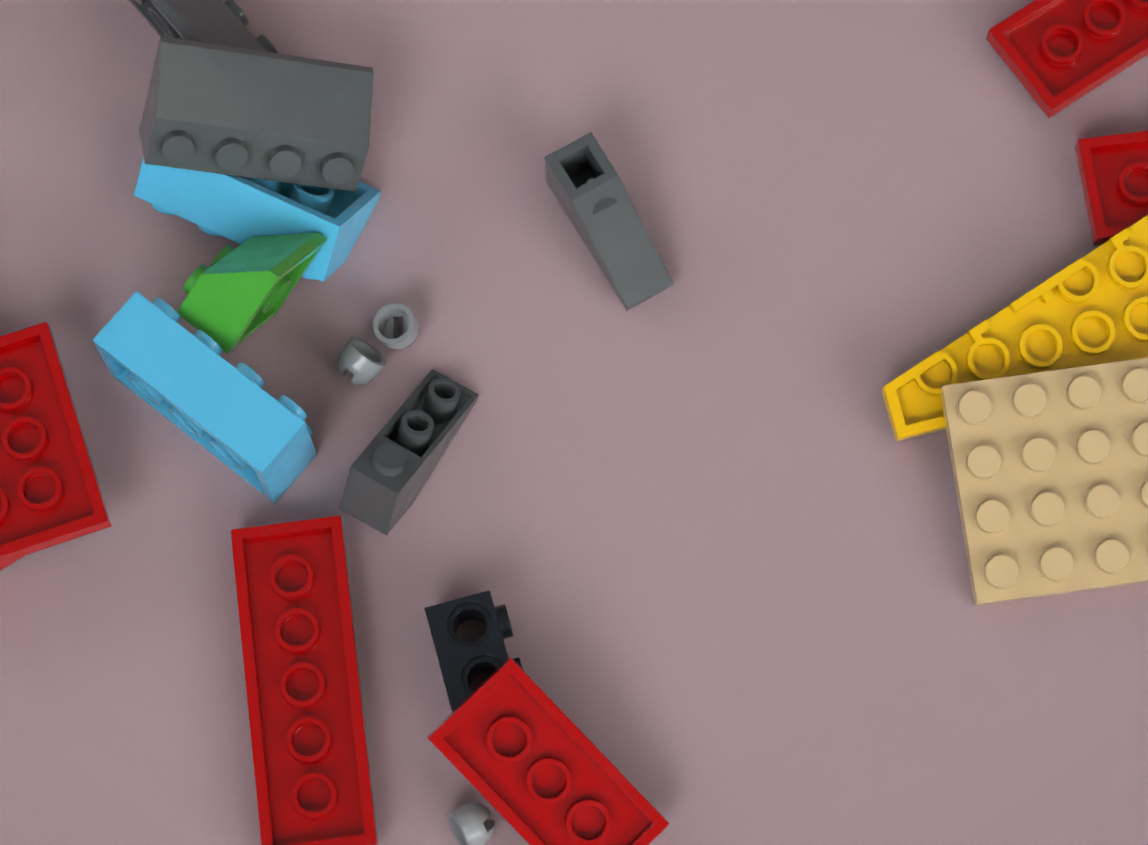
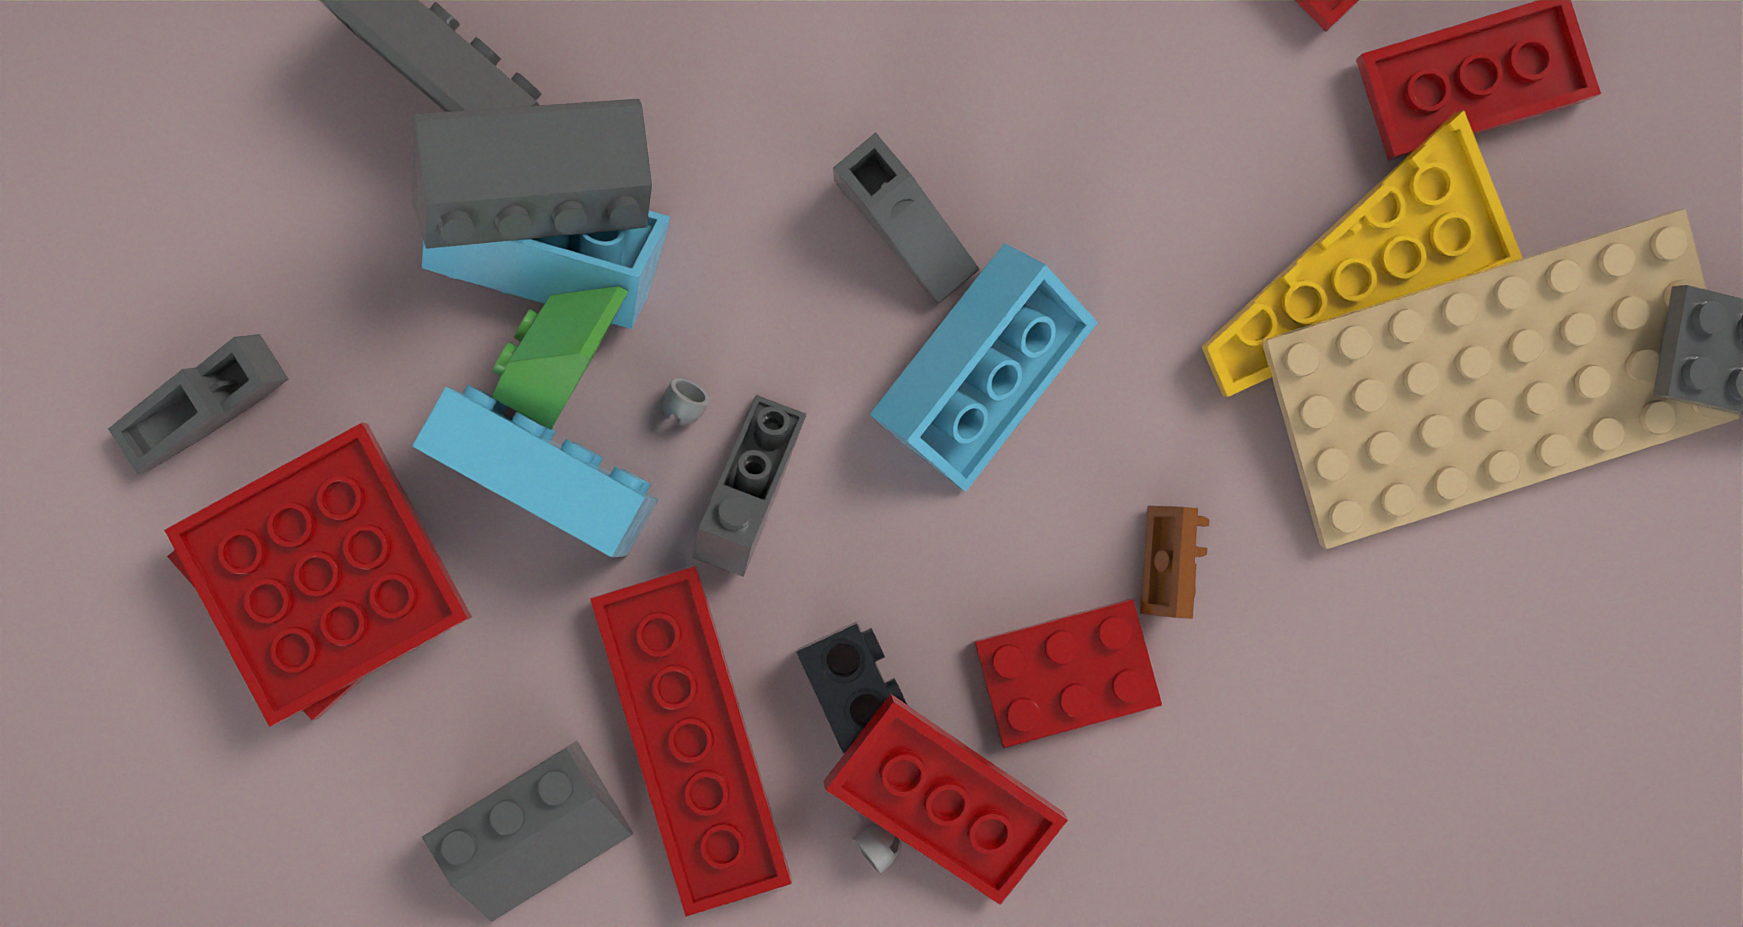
camera: 15 degrees left, 15 degrees up
(122, 750) = (528, 833): none -> dark grey slope
(387, 327) = (703, 360): light grey hinge -> none
(662, 374) = (985, 366): none -> medium azure slope
(696, 686) = (1068, 673): none -> red plate
(817, 586) = (1170, 561): none -> dark orange plate

